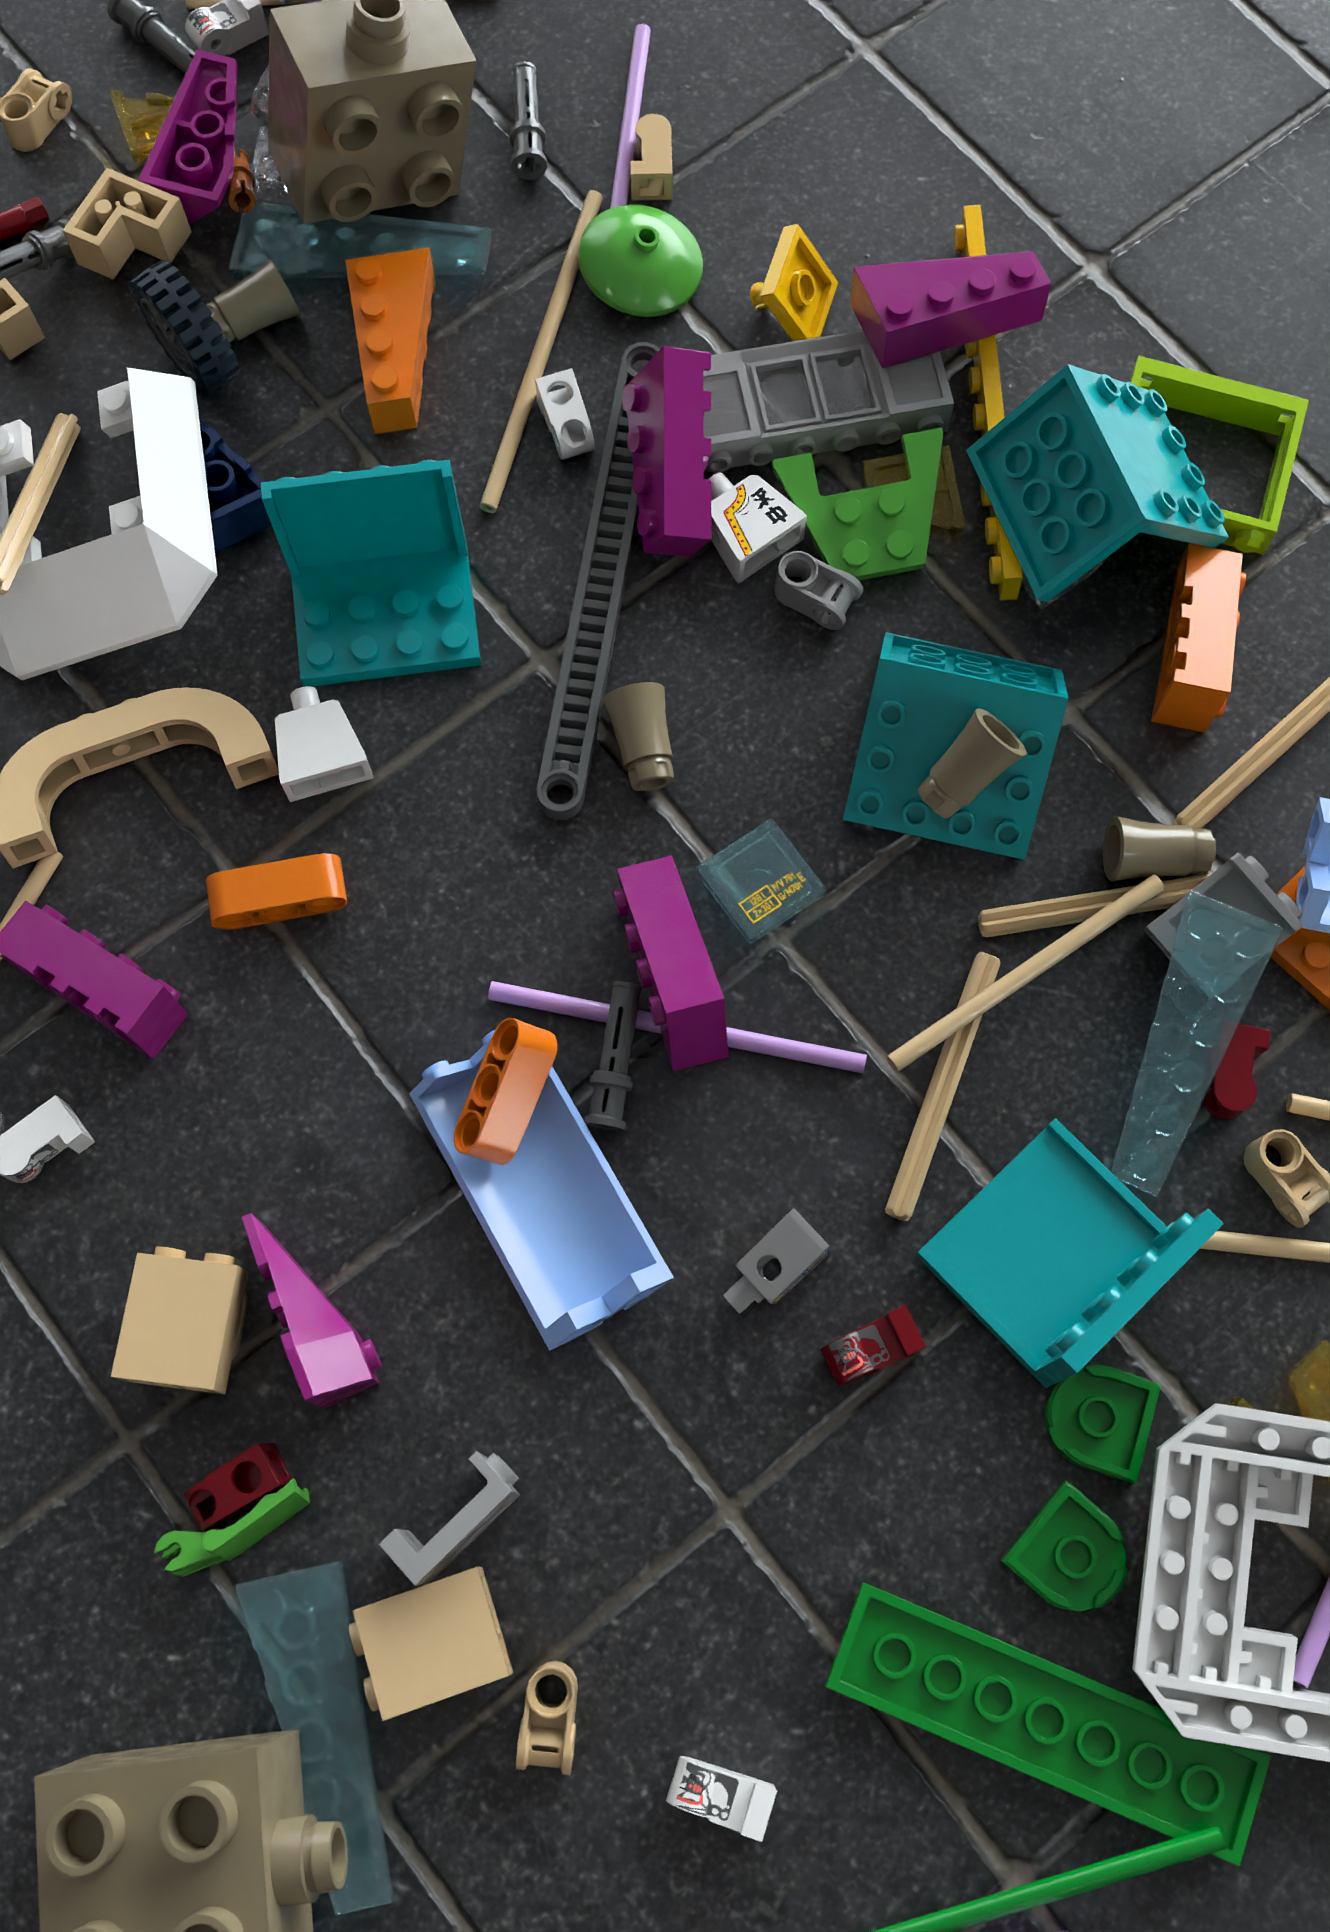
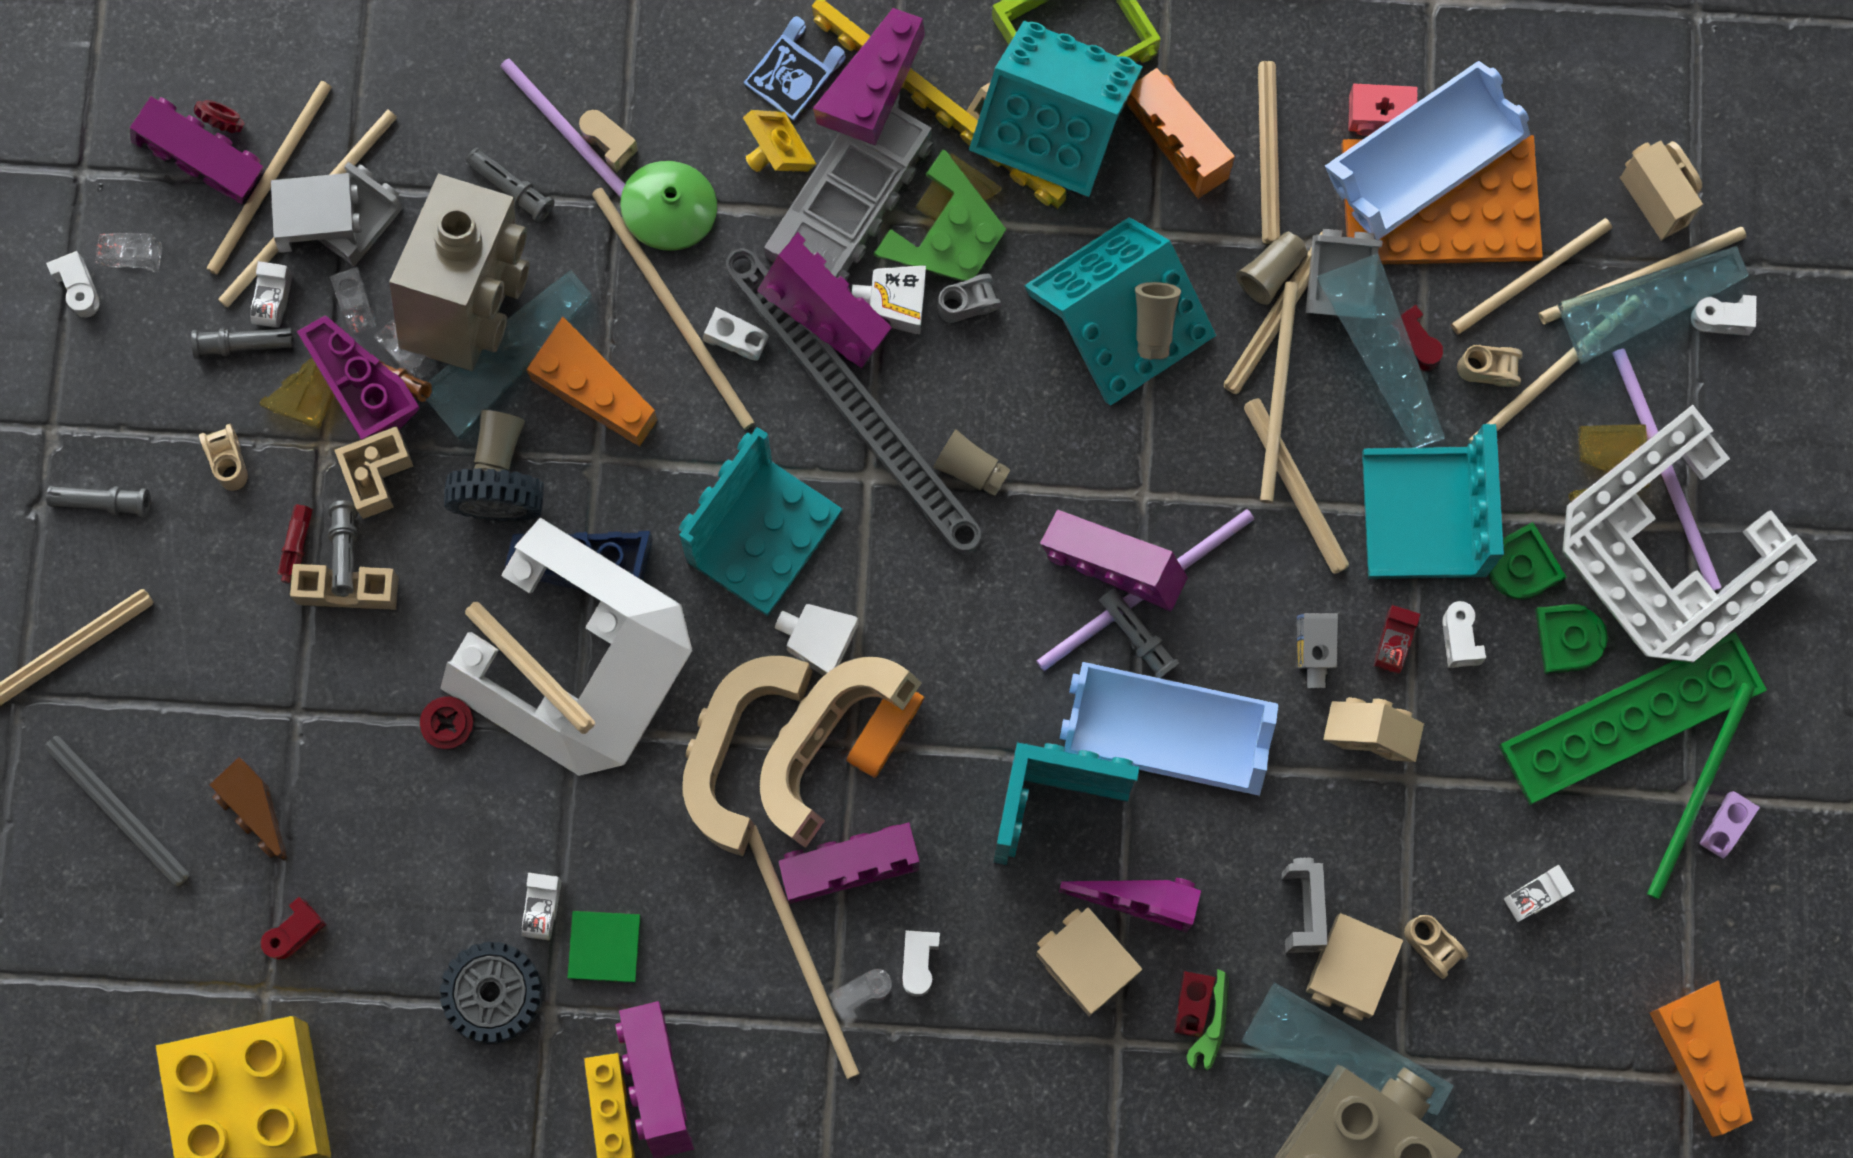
camera: 50 degrees left, 5 degrees up
(192, 816) = (810, 728): none -> tan arch
(289, 1071) = (1061, 770): none -> teal bracket
(505, 1091) = (1112, 702): orange beam -> none
(743, 1414) = (1374, 728): none -> tan brick
(760, 881) = (1105, 477): clear light blue tile -> none
(880, 243) = (791, 75): none -> flag
(956, 1405) = (1459, 636): none -> white leg

